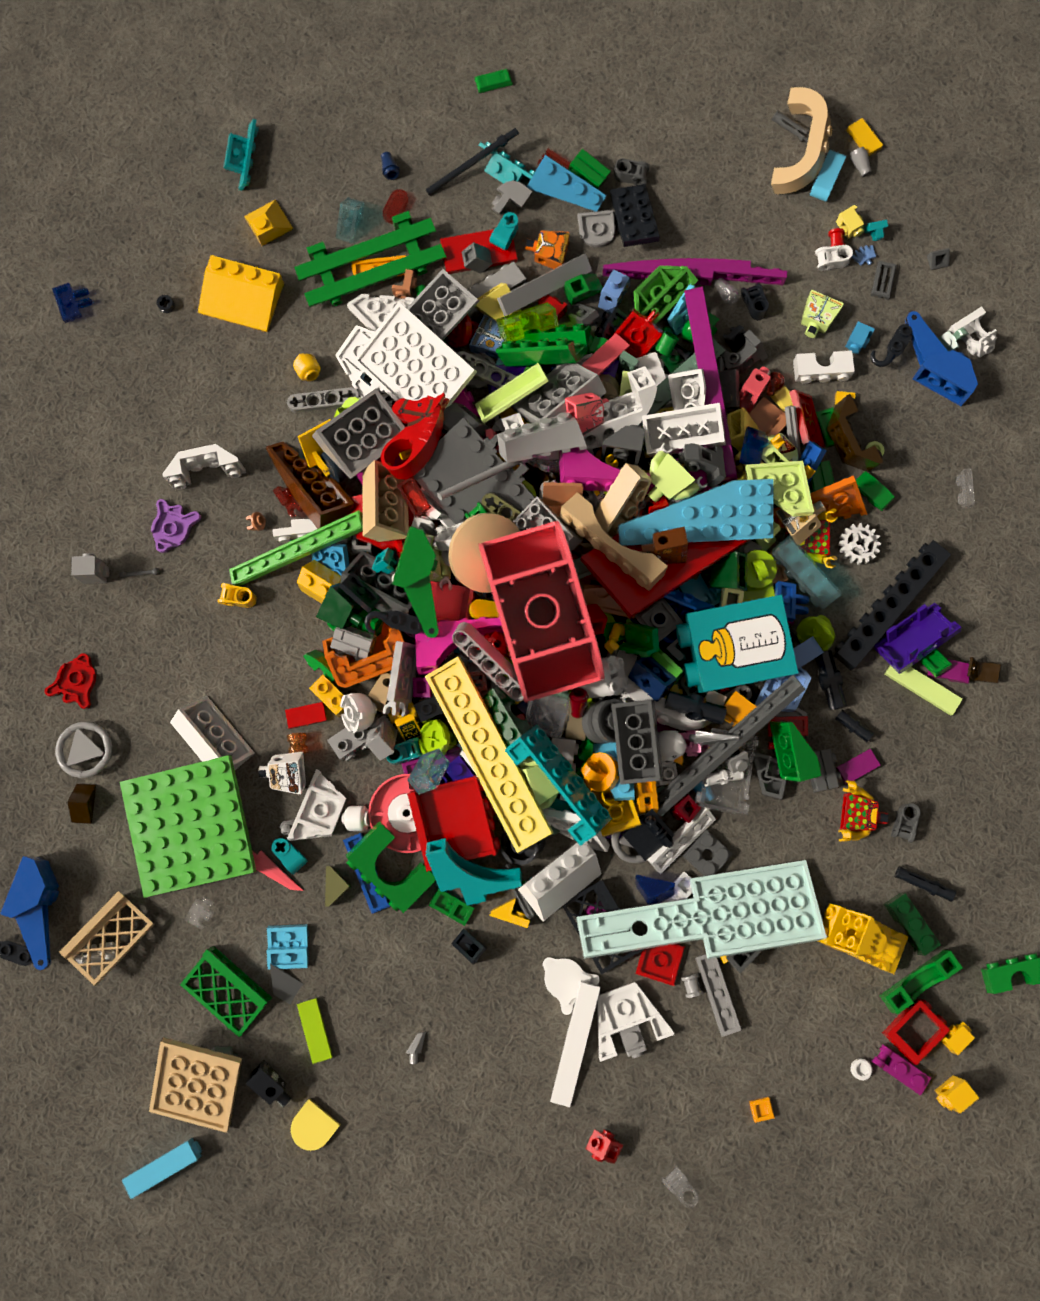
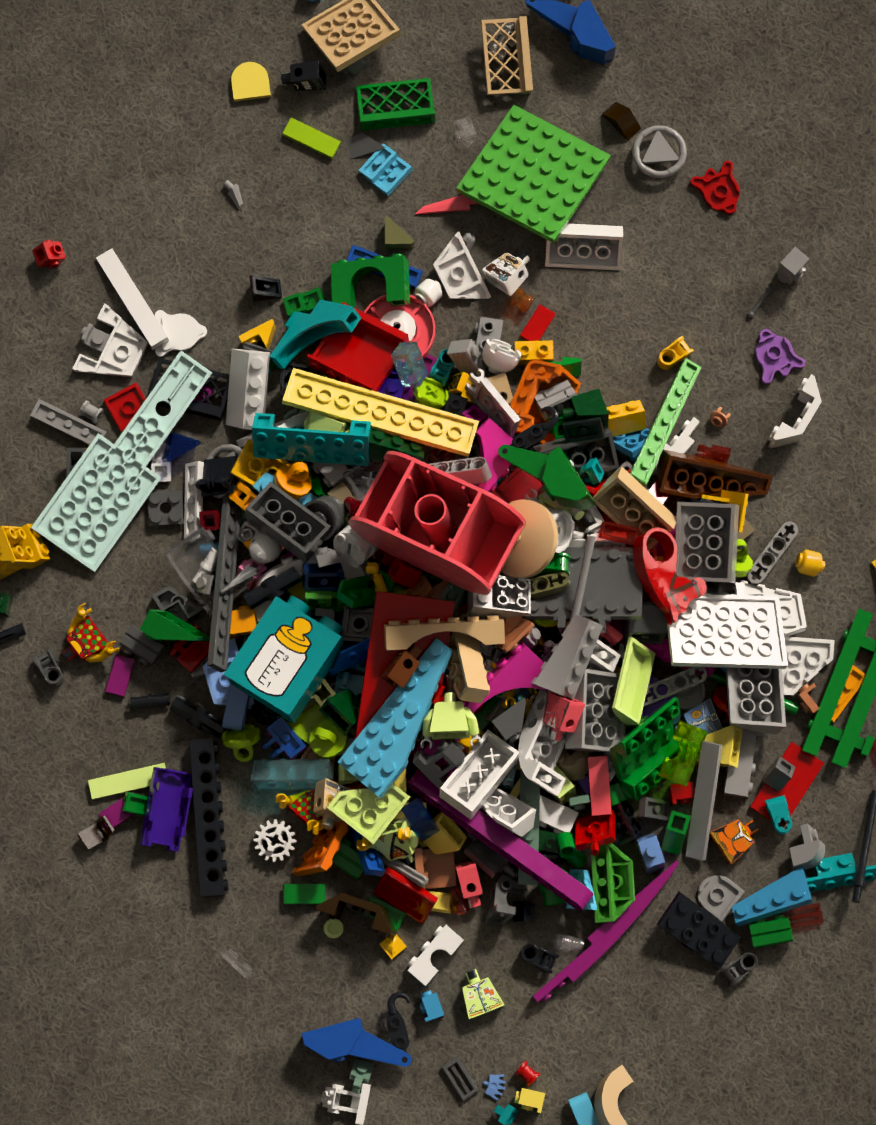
camera: 130 degrees right, 0 degrees up
(291, 857) = (446, 224): teal piece -> none
(639, 684) = (325, 557): none -> light grey piece
(829, 257) = (516, 1053): white piece -> none

